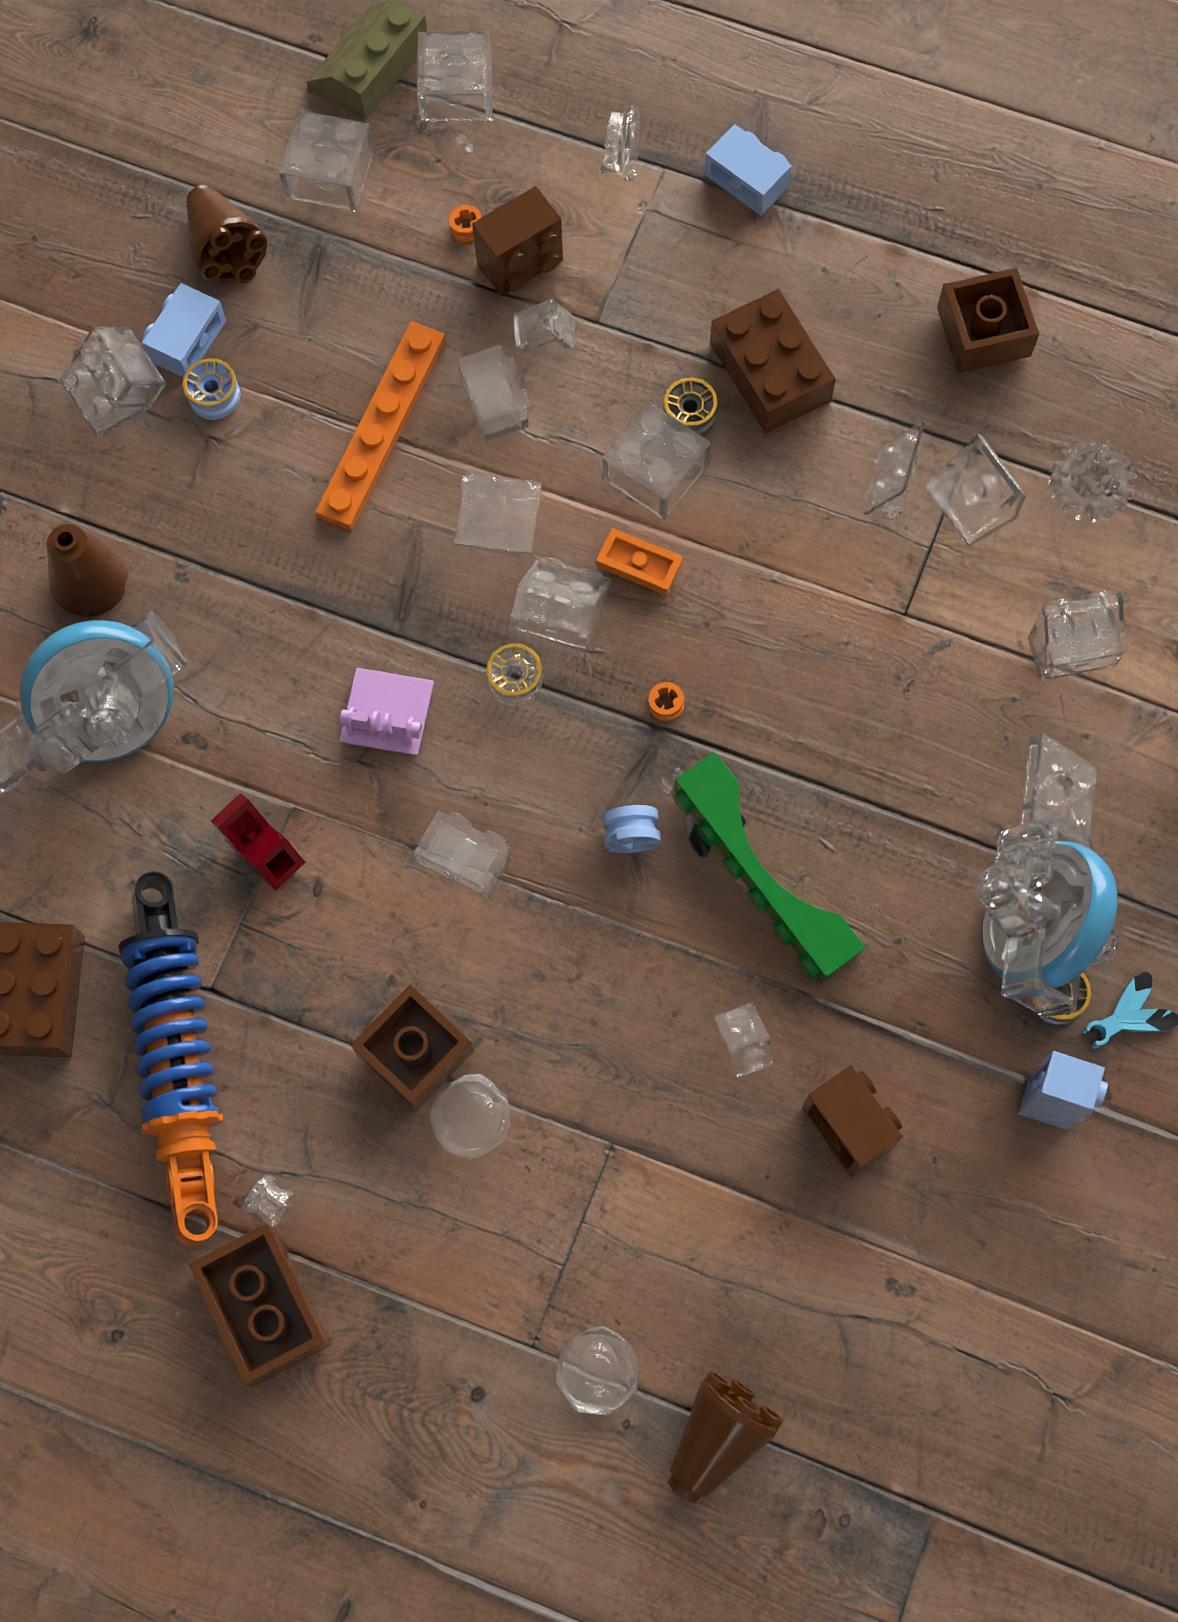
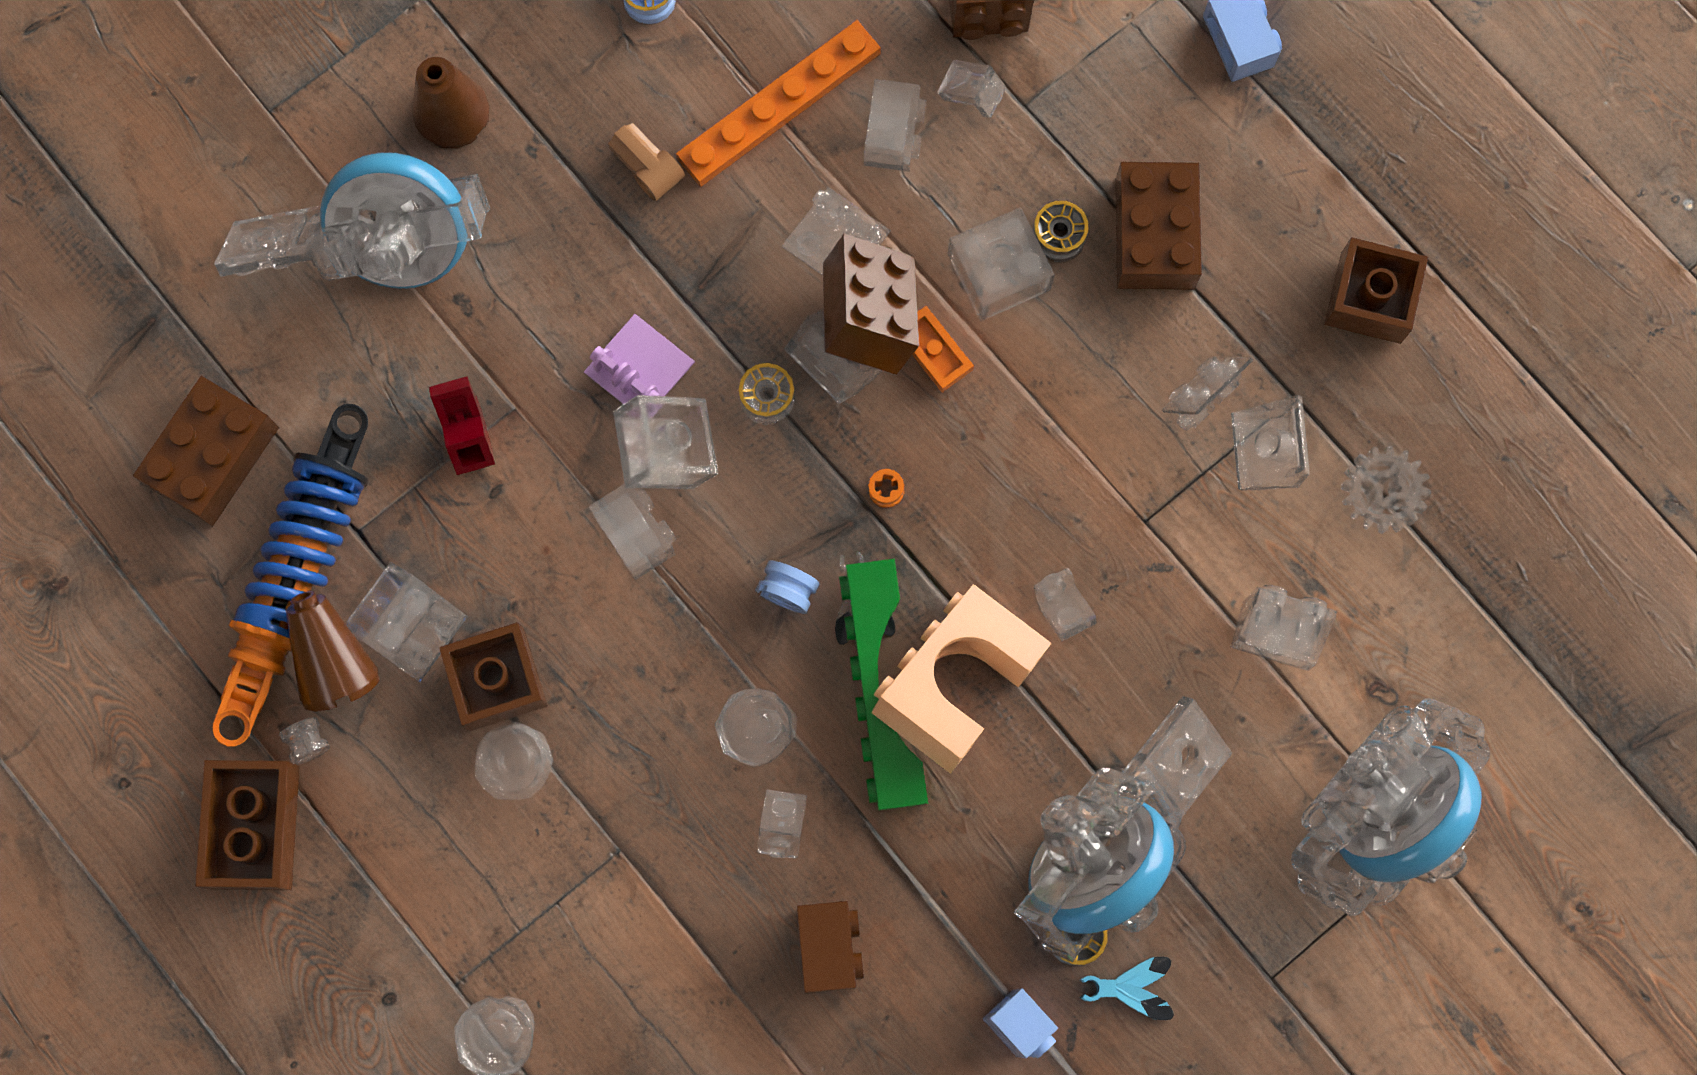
camera: 25 degrees right, 5 degrees up
(249, 1107) = (326, 654): none -> reddish brown cone
(301, 1044) = (405, 621): none -> clear slope
(302, 535) = (652, 169): none -> medium nougat piece
(451, 759) = (665, 442): none -> clear brick
(566, 546) = (870, 304): none -> reddish brown brick
(672, 966) = (755, 726): none -> clear hat
(806, 864) = (973, 627): none -> light nougat arch
(880, 718) = (1063, 604): none -> clear bracket

